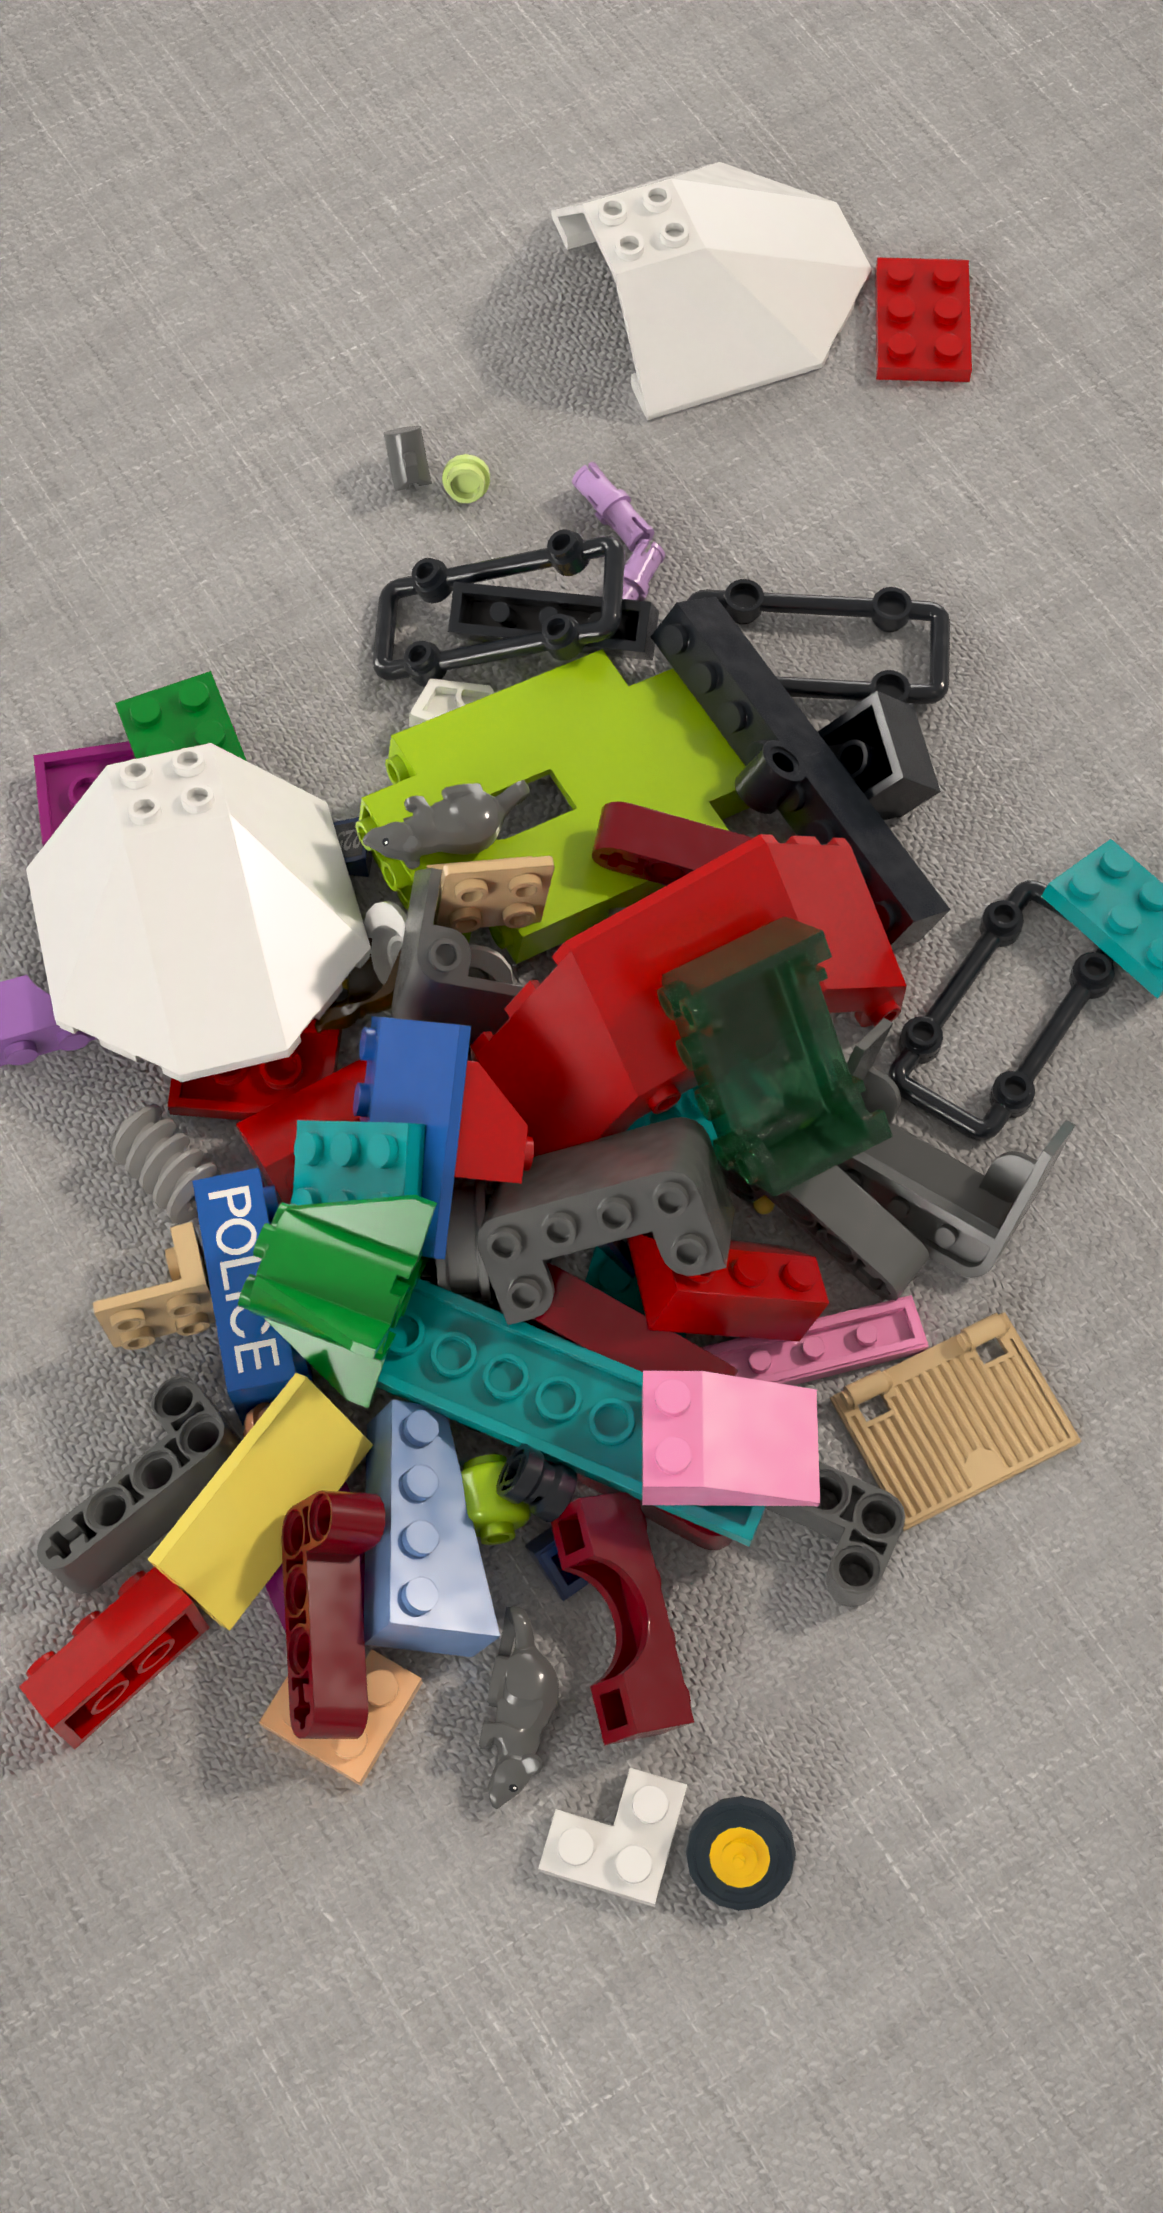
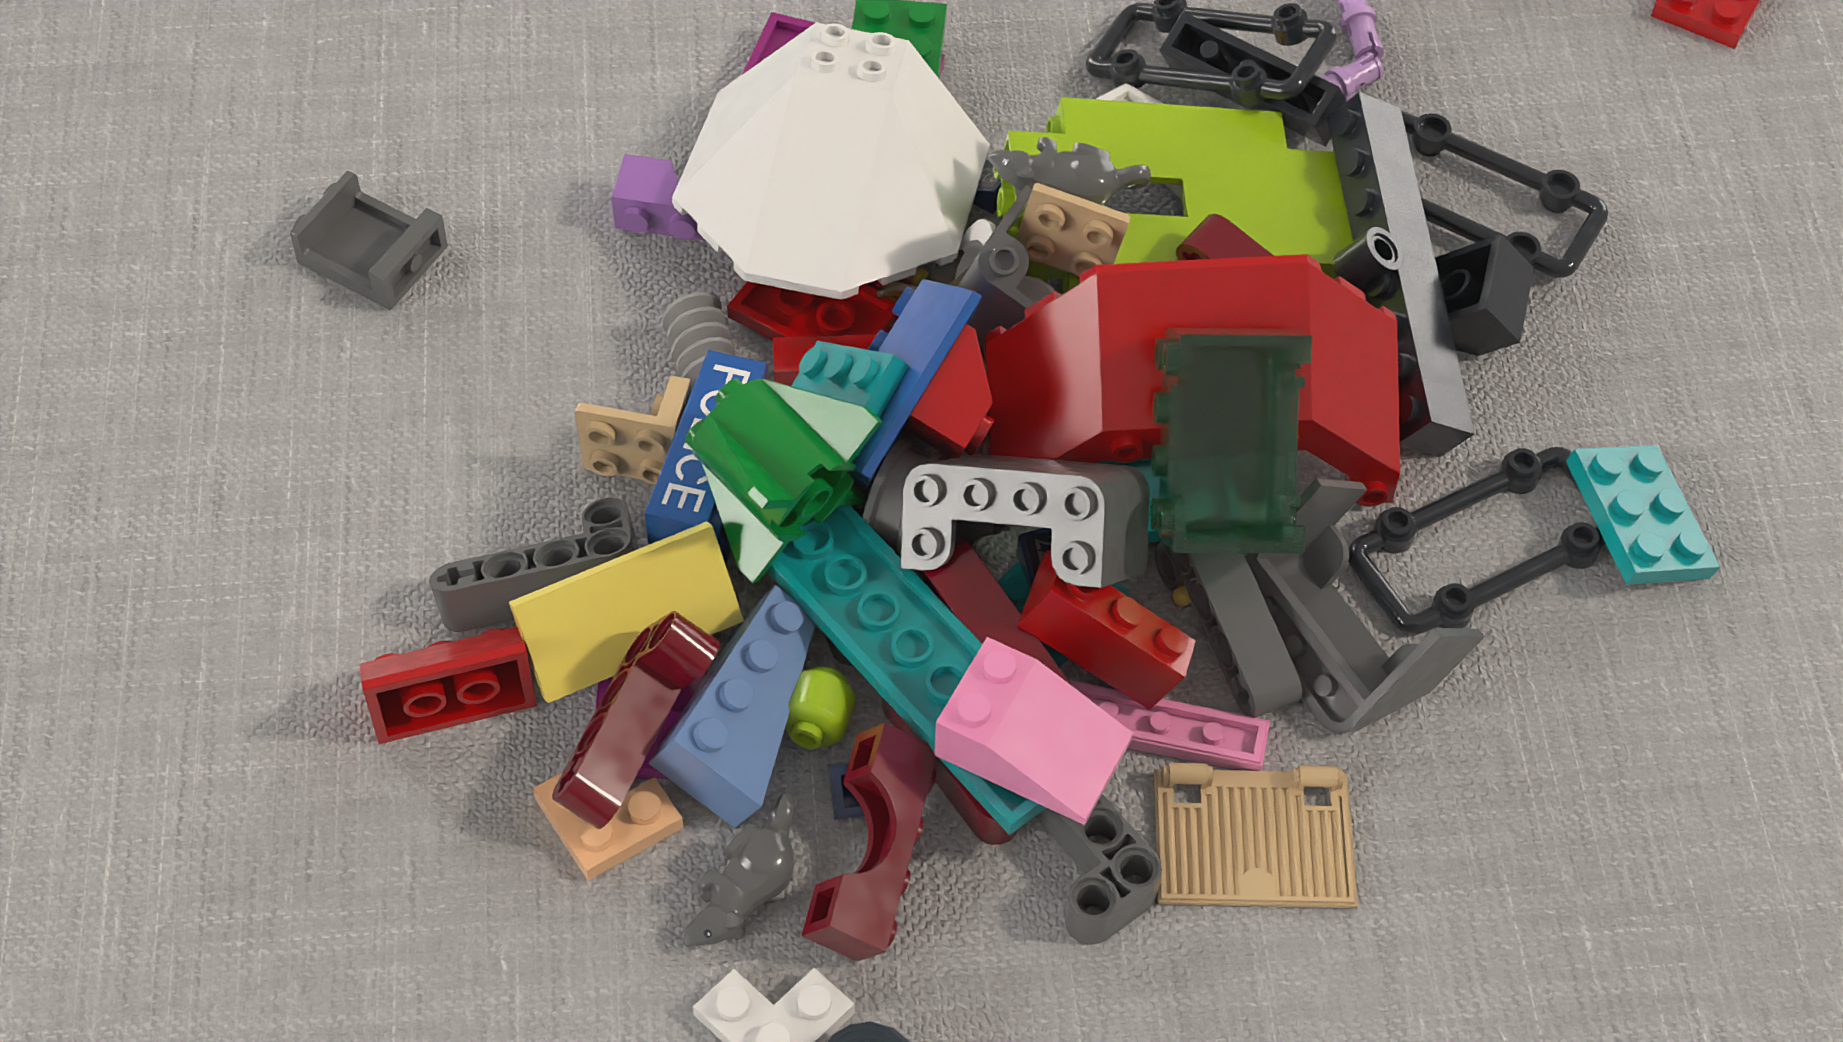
camera: 25 degrees right, 10 degrees down
(535, 1482) = (857, 701): black wheel -> none

